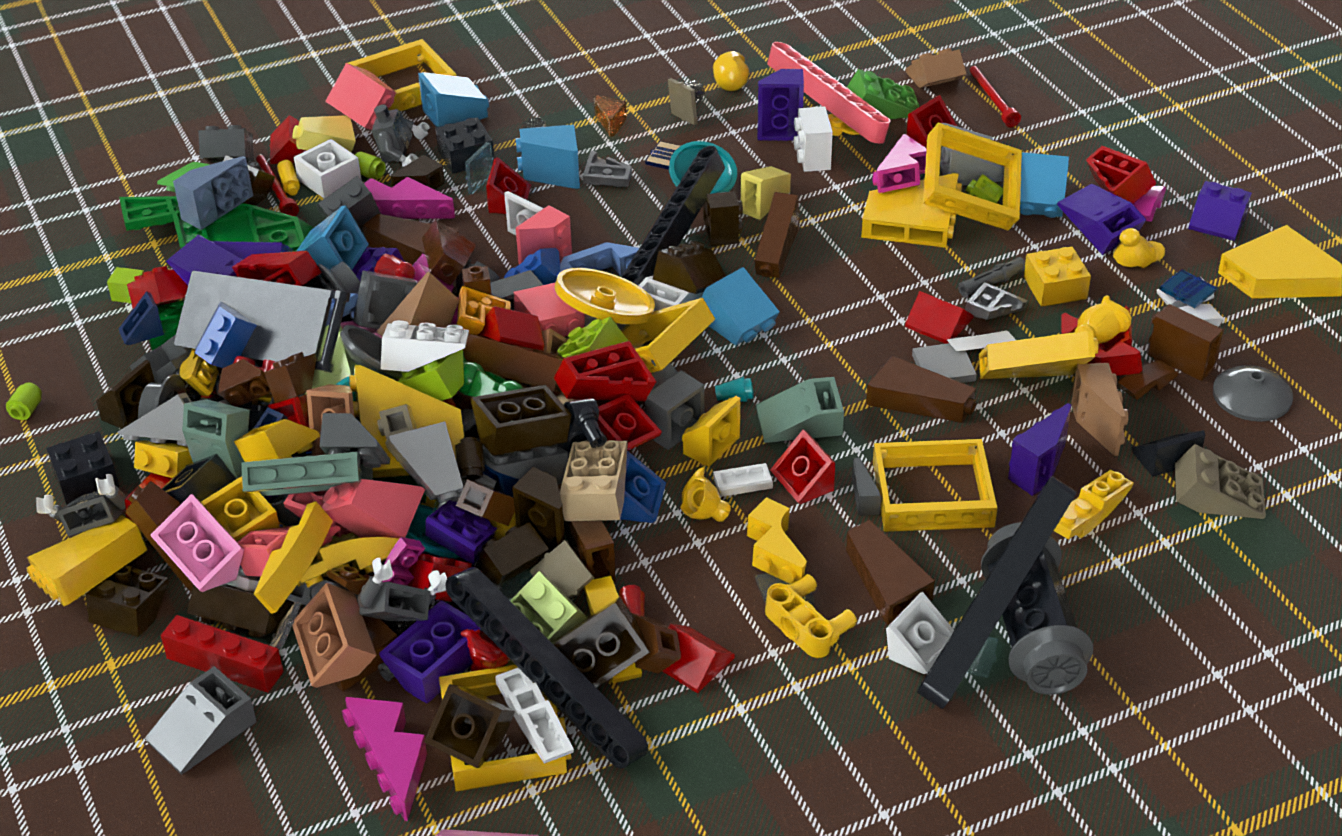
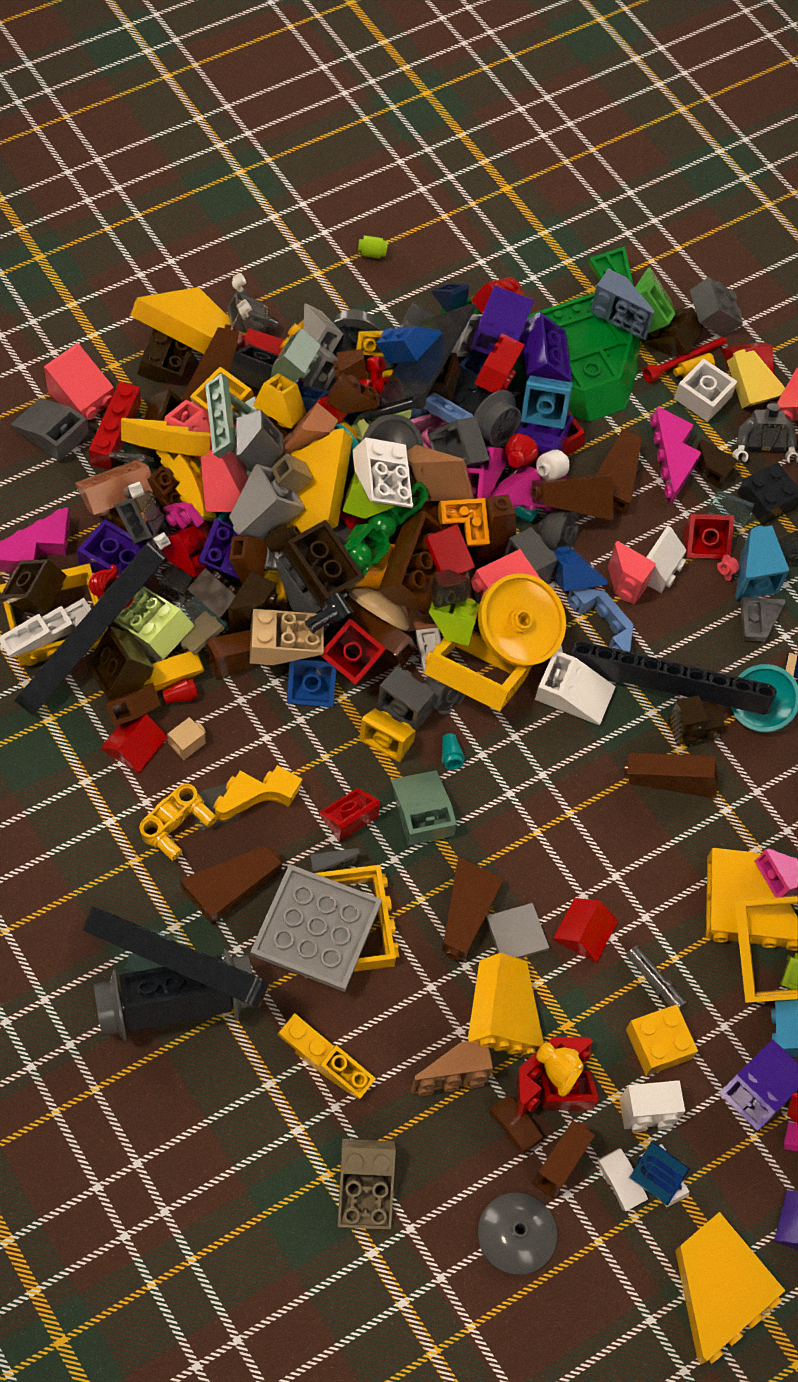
camera: 75 degrees right, 20 degrees up
(79, 463) = (294, 292): black brick -> none
(118, 283) = (525, 276): lime brick -> none
(121, 402) = (385, 310): dark brown slope -> none
(142, 684) = (78, 382): none -> coral slope
(199, 545) = (185, 378): bright pink slope -> none
(355, 197) = (636, 410): dark grey slope -> none
(370, 165) = (723, 422): lime brick -> none
(416, 251) = (552, 465): none -> white head
(539, 180) = (728, 567): none -> coral plate
(566, 332) = (449, 588): none -> clear smoke slope
(605, 374) = (395, 623): red wedge -> none
(688, 267) = (600, 697): dark brown slope -> none
(697, 602) = (187, 738): none -> tan brick
(702, 499) = (302, 734): yellow hair -> none
(739, 307) = (558, 744): dark azure slope -> none
(742, 479) = (337, 765): white plate -> none
(759, 188) = (751, 757): light yellow slope -> none
(918, 635) = (155, 907): white slope -> none
(952, 489) = (316, 927): none -> light grey plate
(980, 341) = (555, 968): white sticker -> none
(993, 302) = (612, 977): flat silver wing -> none
(1039, 451) = (386, 1014): dark purple slope -> none
(1127, 279) = (652, 1105): none -> white brick
(1136, 250) = (725, 1130): yellow hair -> none
(1162, 454) = (414, 1136): black slope -> none

